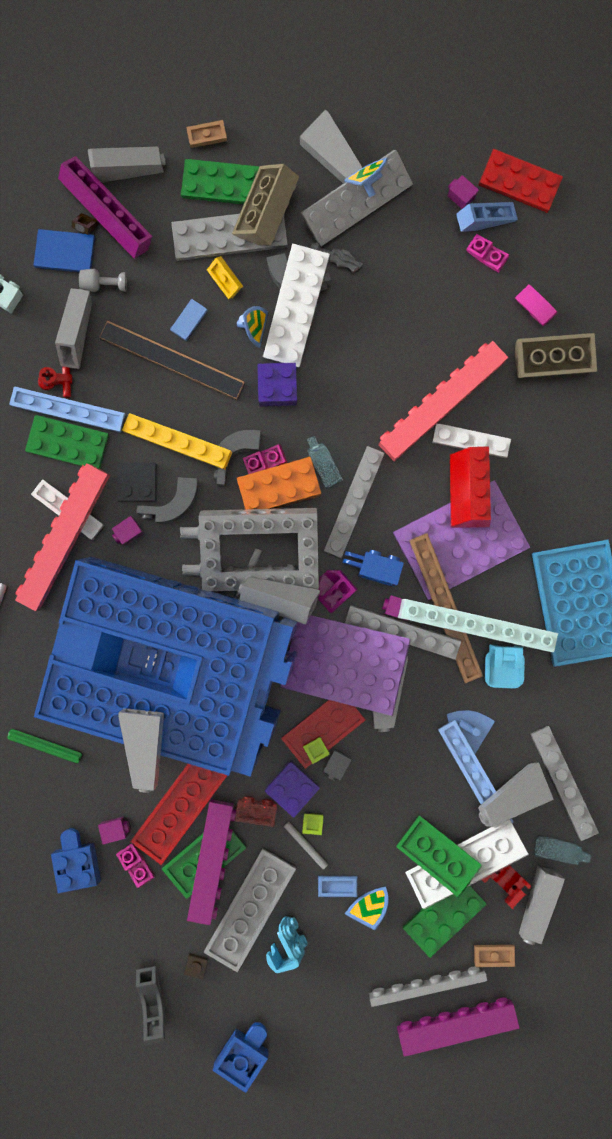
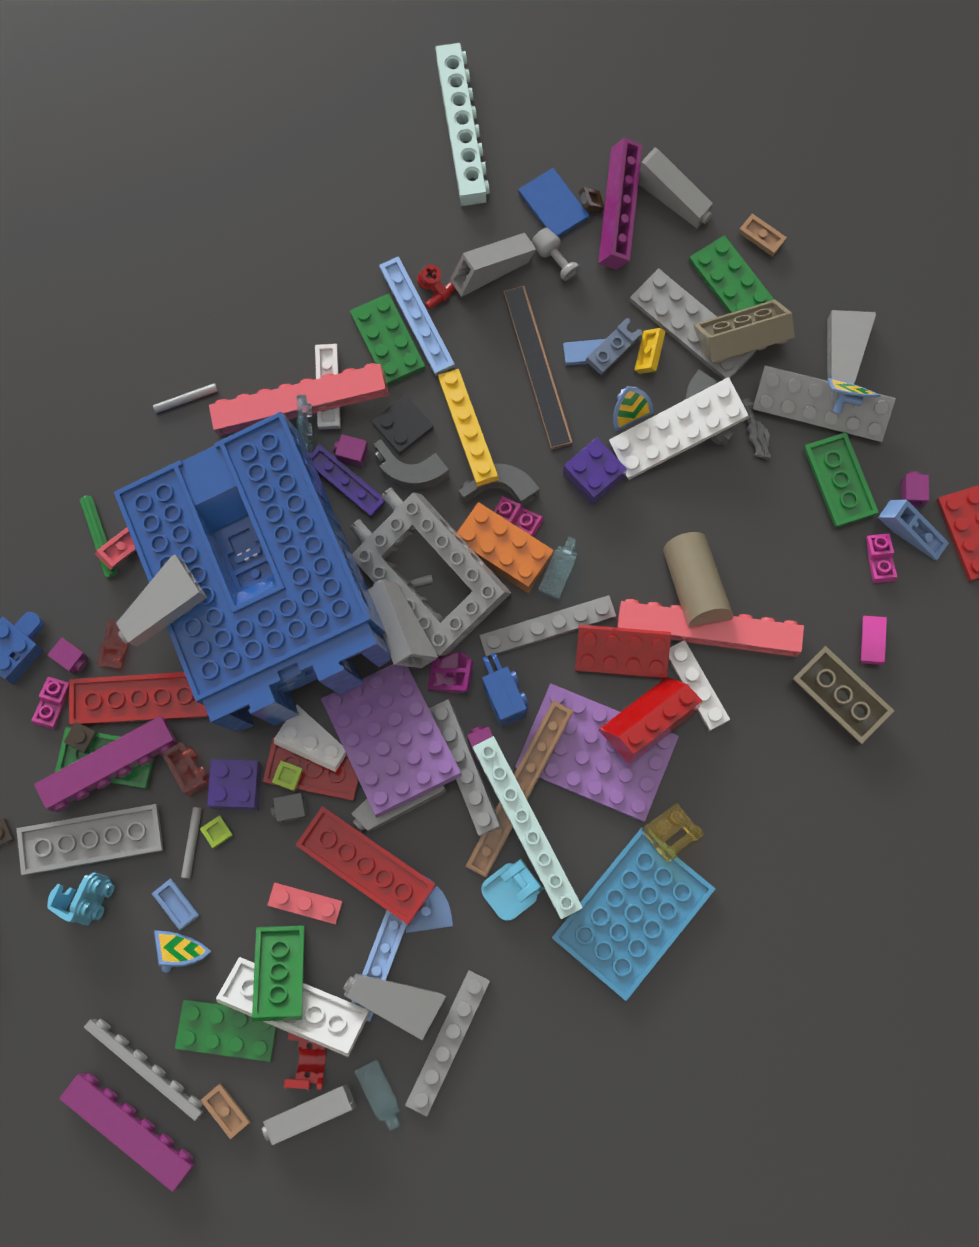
camera: 50 degrees right, 10 degrees down
(65, 742) = (116, 549): none -> coral plate
(85, 550) = (304, 411): none -> clear light blue hinge
(130, 797) = (113, 648): none -> clear red slope
(145, 551) = (346, 481): none -> dark purple plate
(177, 864) = (80, 737): none -> dark brown plate
(202, 299) = (613, 347): none -> sand blue plate
(305, 716) = (310, 740): none -> white wing
(405, 803) = (305, 903): none -> coral plate
(406, 382) = (697, 579): none -> dark tan brick
(412, 468) = (623, 651): none -> red plate
(414, 746) = (366, 865): none -> red plate
(416, 232) = (840, 480): none -> green plate
(545, 536) = (666, 826): none -> clear yellow plate

